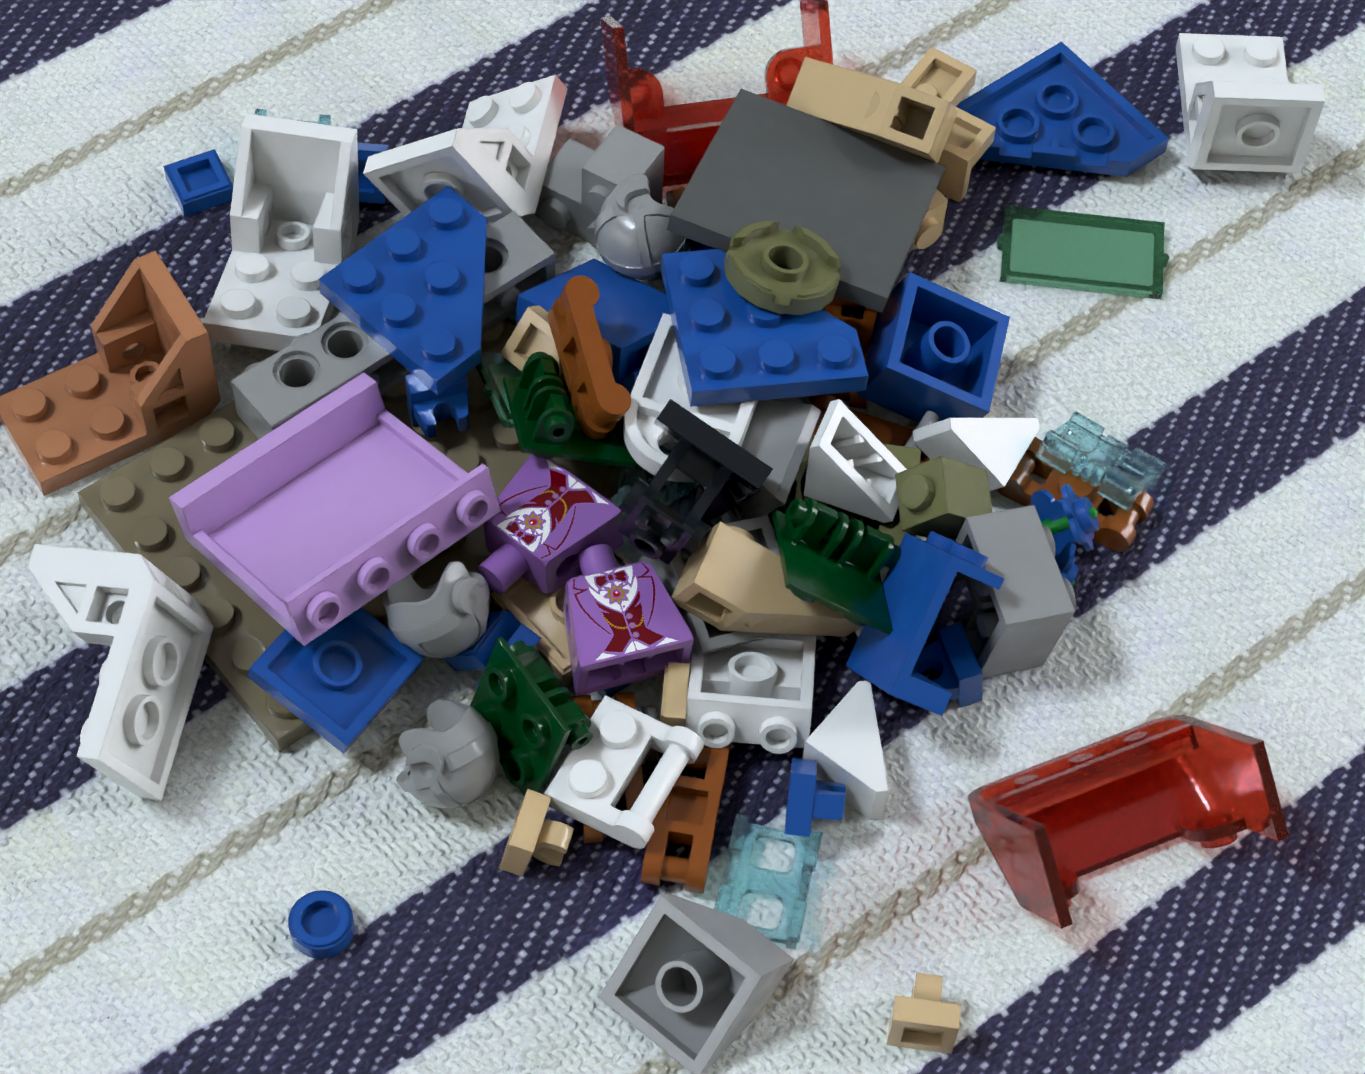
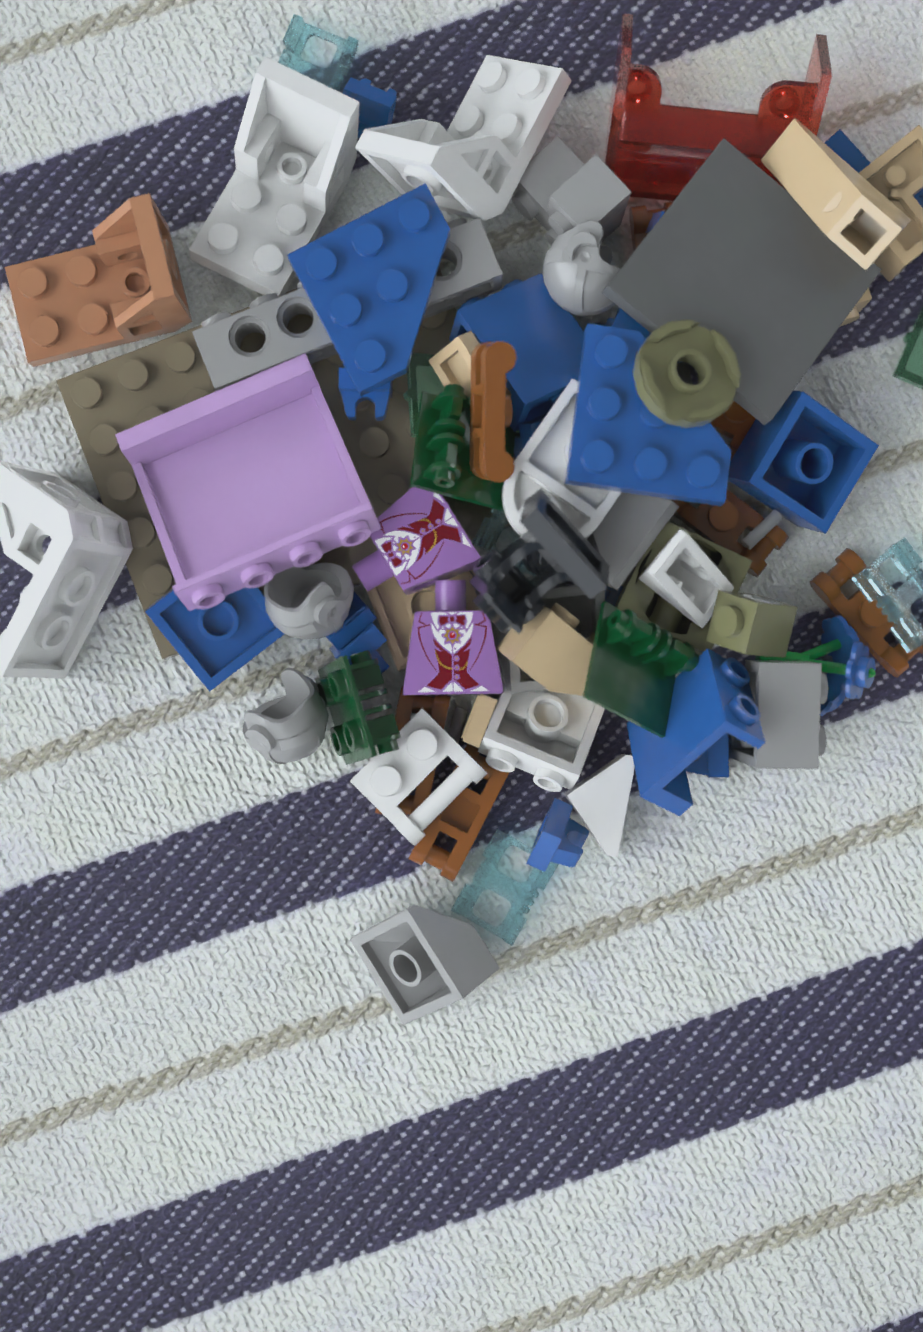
camera: 20 degrees right, 30 degrees up
(199, 182) = (227, 77): blue tile -> none
(321, 924) = (160, 820): blue tile -> none
(534, 836) = (334, 800): tan tile -> none
(923, 1019) = (583, 1038): tan tile -> none
(980, 442) = (808, 559): white slope -> none
(1122, 799) = (791, 899): clear red windscreen -> none

